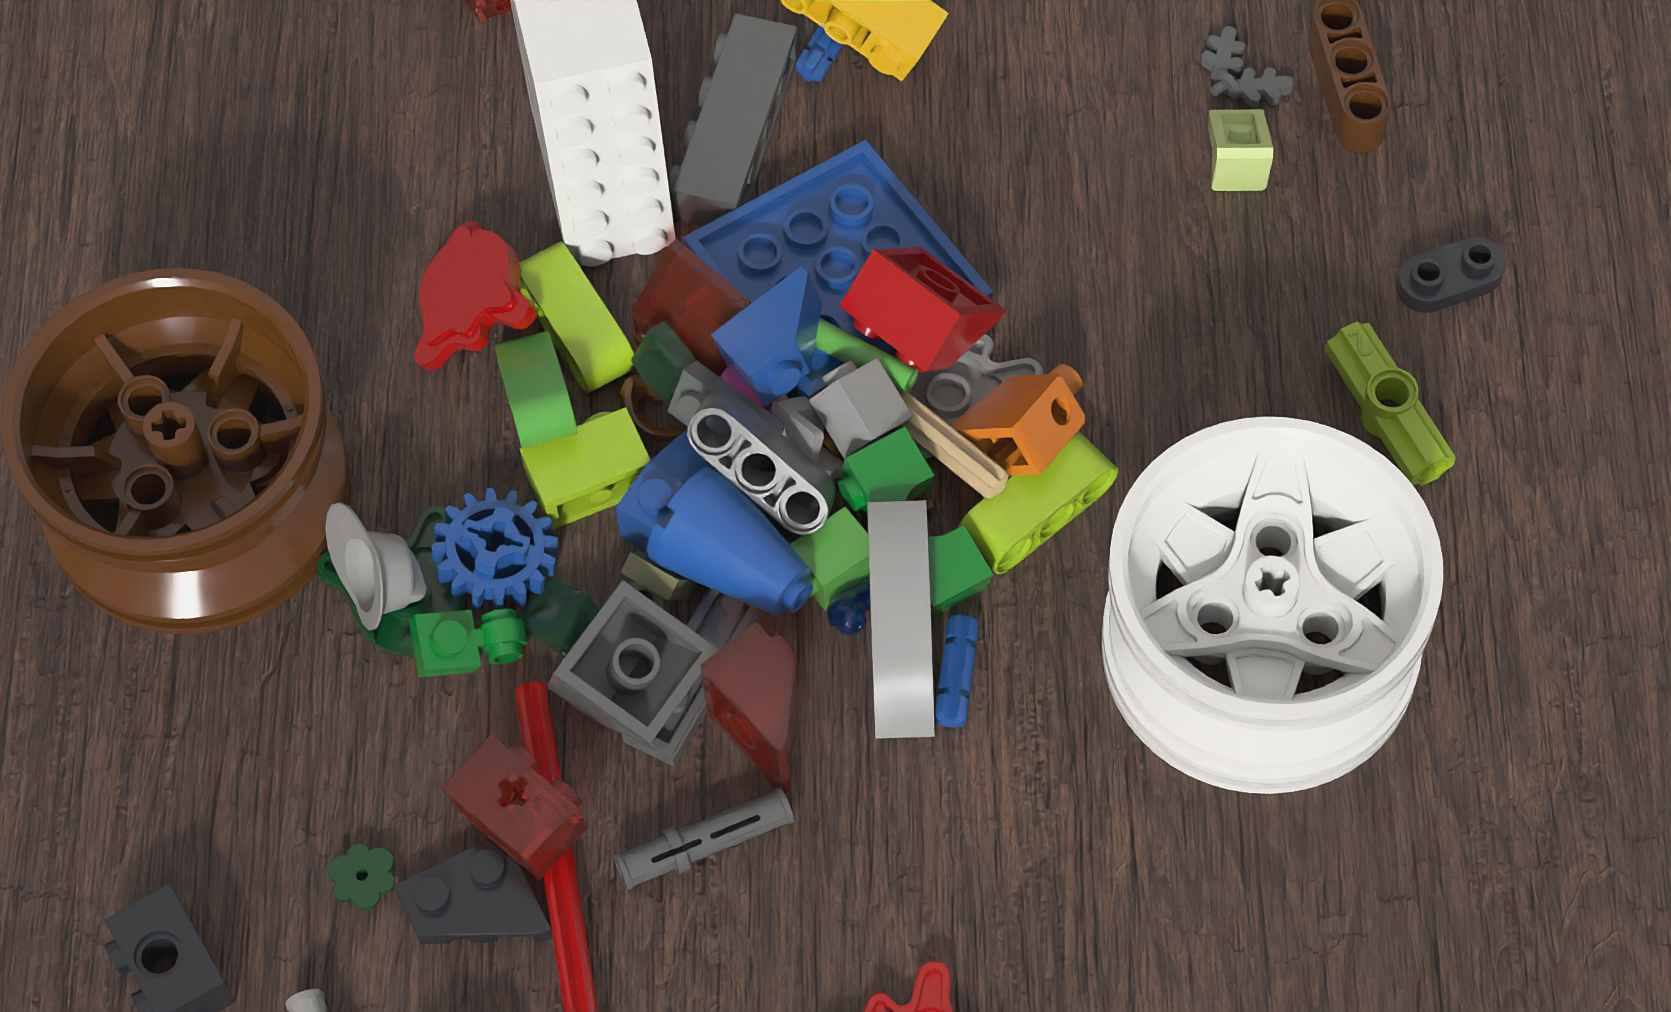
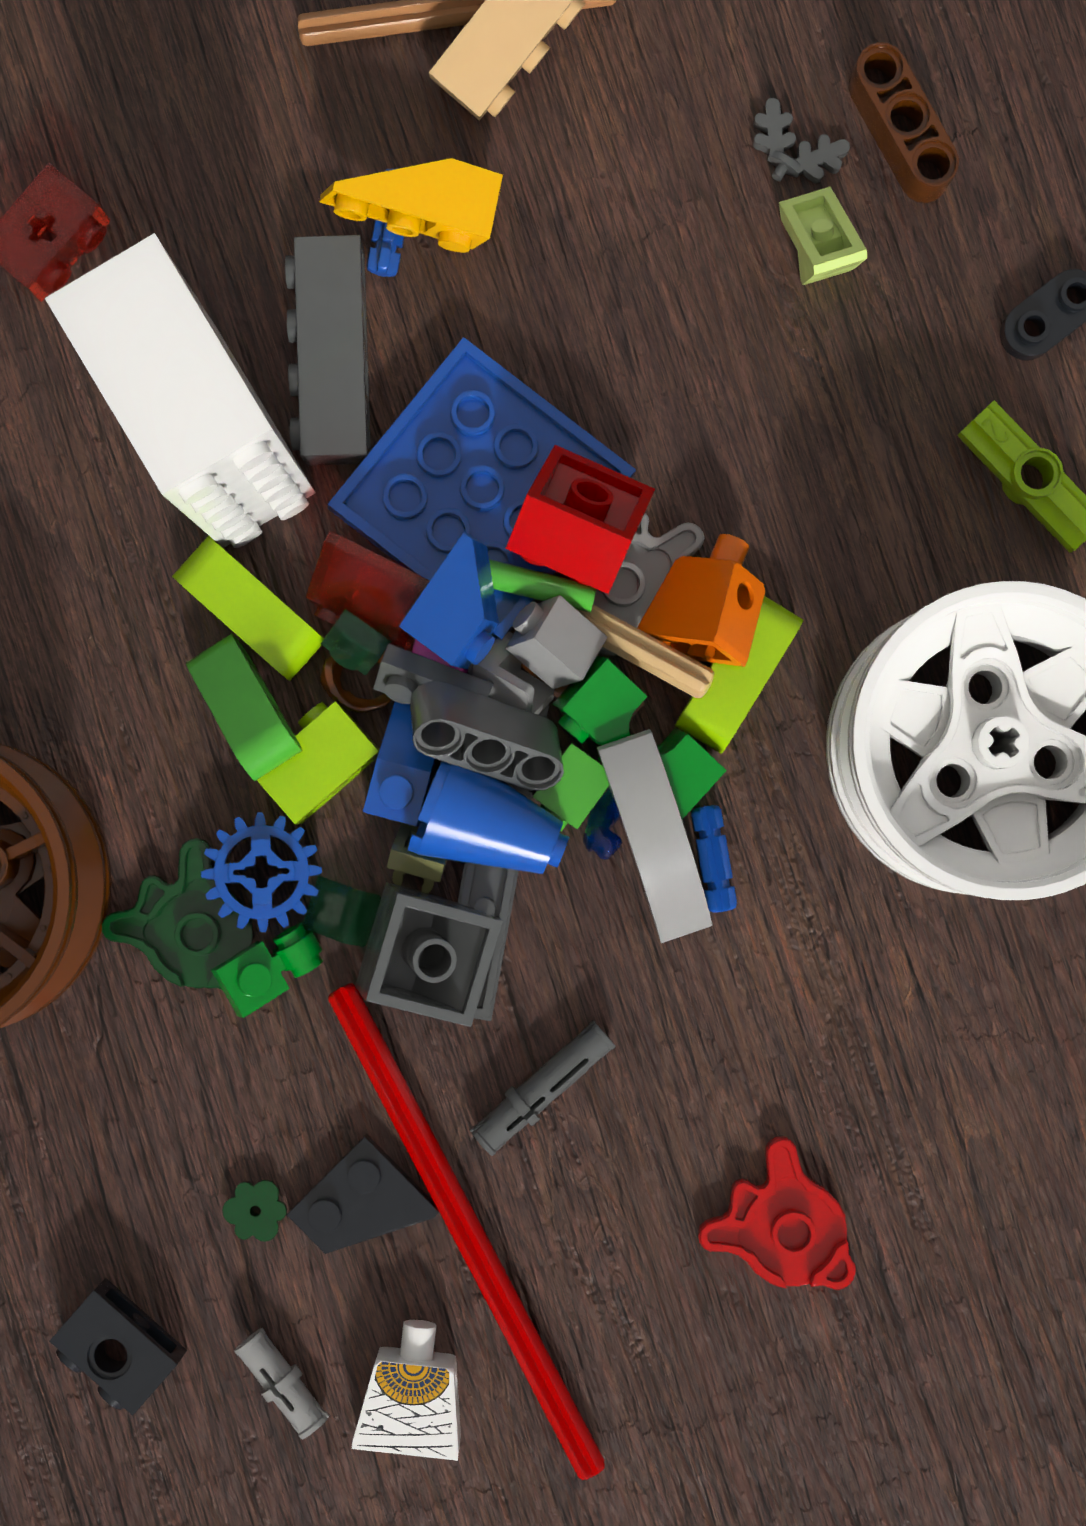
camera: 20 degrees left, 25 degrees up
(372, 566) = (166, 932): light grey piece -> none
(467, 292) = (143, 616): red tile -> none
(531, 834) = (343, 1125): clear red brick -> none
(755, 700) = (557, 962): clear red slope -> none

